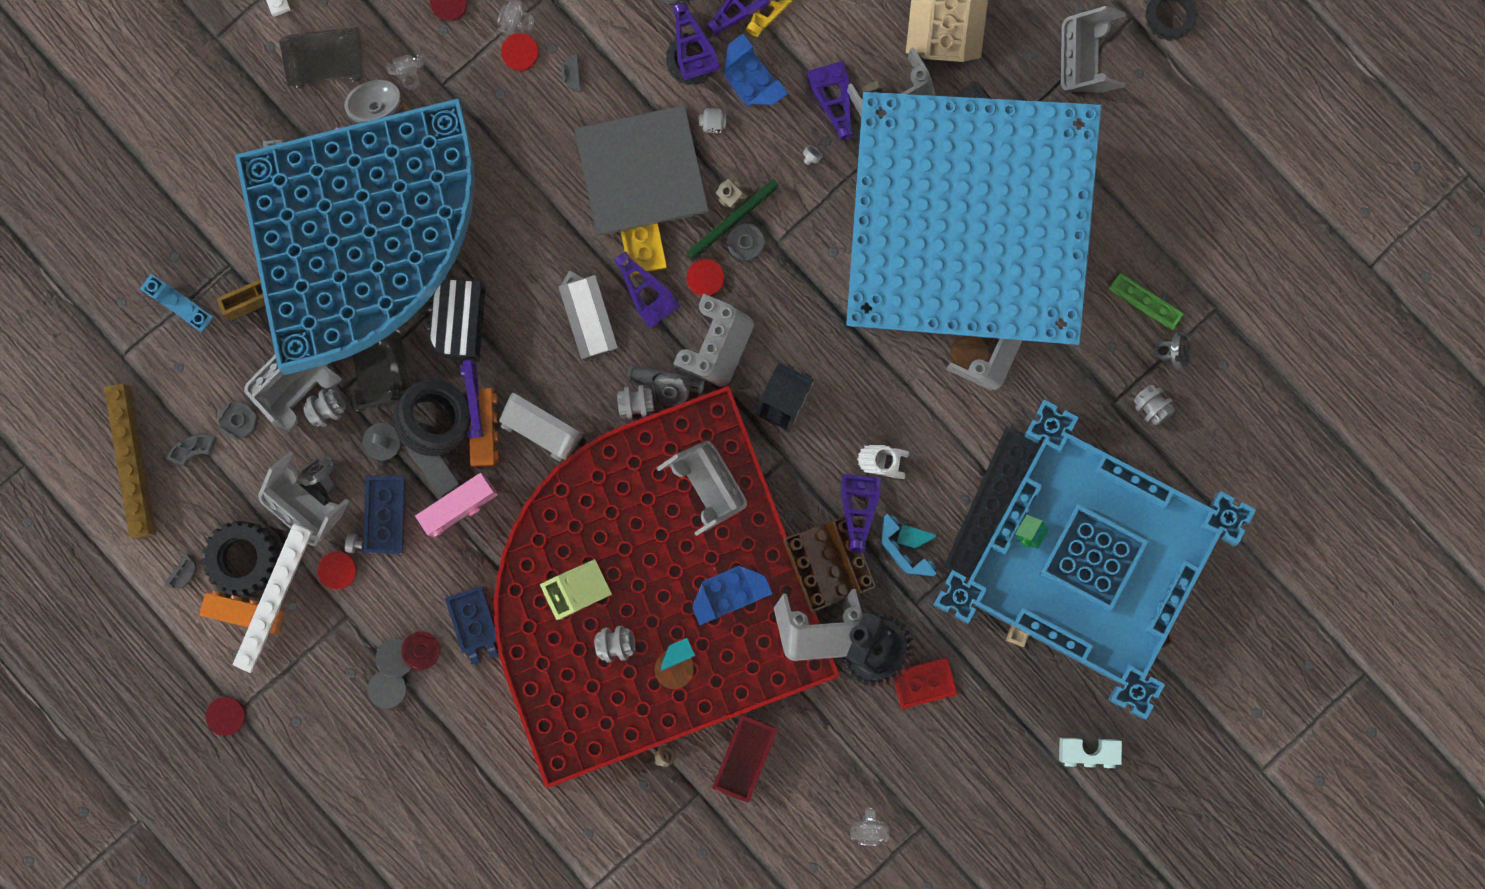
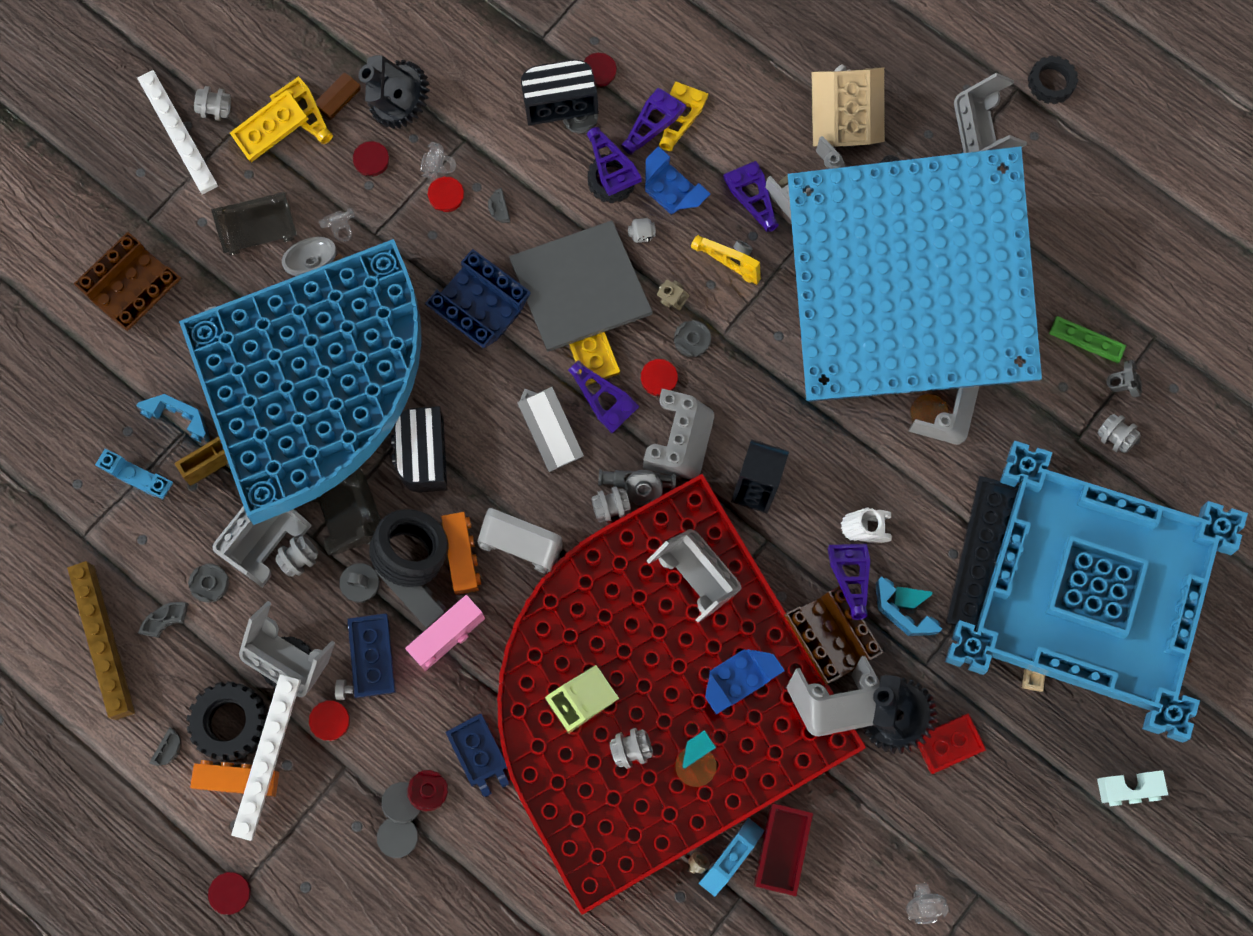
camera: 15 degrees left, 10 degrees down
(189, 102) = (126, 281): none -> reddish brown slope
(204, 236) = (155, 406): none -> dark azure slope
(318, 473) = (299, 623): dark grey tile -> none
(469, 370) = (440, 497): dark purple plate -> none
(537, 173) = (480, 300): none -> dark blue slope
(696, 756) = (732, 857): none -> dark azure slope
(732, 220) = (676, 319): dark green tile -> none
(806, 171) = (748, 267): none -> yellow plate
(1031, 532) = (1031, 570): green brick -> none

